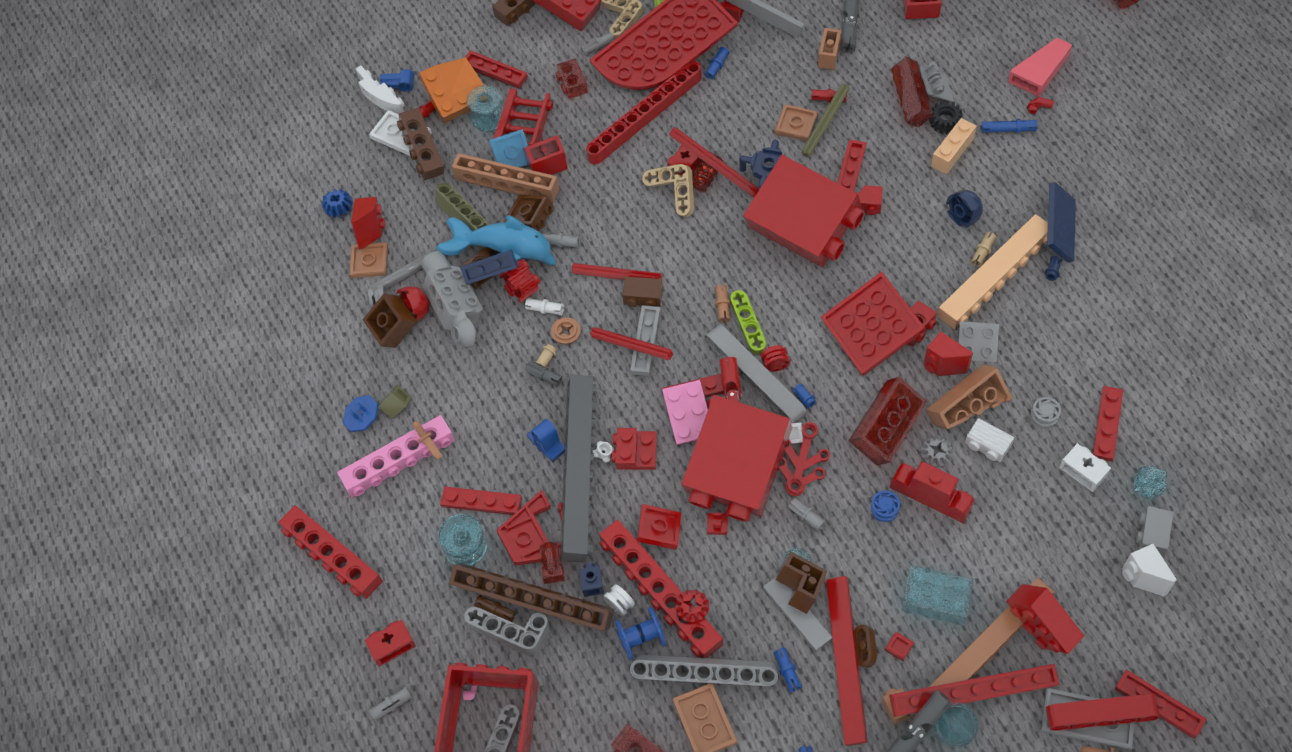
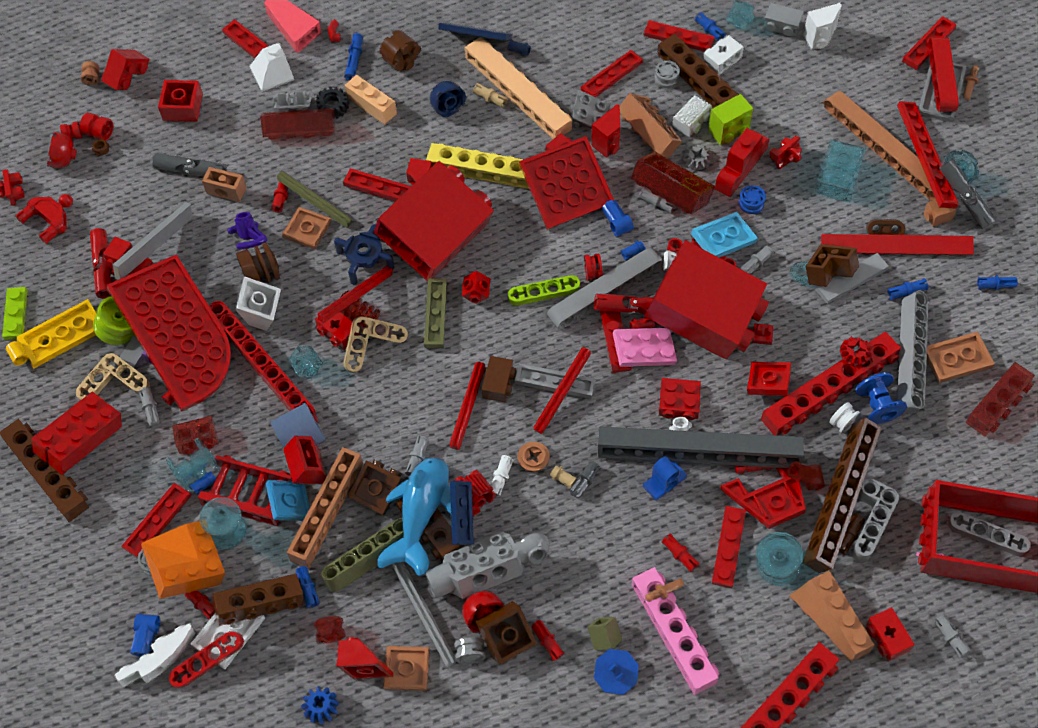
camera: 90 degrees left, 0 degrees up
(374, 119) = (207, 661): none -> red beam
(389, 358) = (547, 640): none -> red axle
(395, 198) = (329, 629): none -> clear red wheel
(413, 592) = (833, 614): none -> nougat wedge
(437, 179) = (307, 587): none -> blue axle
(473, 459) = (680, 552): none -> red pin
(529, 93) = (203, 483): none -> blue pin
(533, 75) = (194, 467): none -> clear light blue hose
(577, 145) = (297, 423): none -> sand blue slope
(591, 586) = (819, 448): dark blue brick -> none
(647, 141) = (305, 361): none -> clear light blue brick
(700, 93) = (257, 303): none -> white slope
(711, 234) = (435, 313): none -> olive plate
(716, 63) = (210, 290): blue pin -> none
(722, 303) = (520, 309): nougat pin -> none
(740, 87) = (260, 264): none -> reddish brown wheel
(742, 267) = (476, 287): none -> red brick
(779, 72) = (247, 230): none -> dark purple piece
(830, 478) = (724, 235): none -> medium azure plate
(837, 380) = (618, 220): none -> blue piece
(890, 211) = (479, 164): none -> light yellow brick
(899, 646) = (882, 206): red tile -> none
(956, 541) = (789, 151): none -> red hips
(980, 63) = (271, 68): none -> white slope
(984, 474) = (730, 119): none -> lime brick
(1011, 36) = (244, 38): none -> red plate
(1017, 158) = (399, 51): none -> reddish brown brick
(1037, 360) = (612, 74): none -> red tile
(1044, 619) = (871, 92): red brick -> none
(1079, 410) = (696, 71): none -> reddish brown brick
(1129, 454) = (710, 26): none -> blue pin

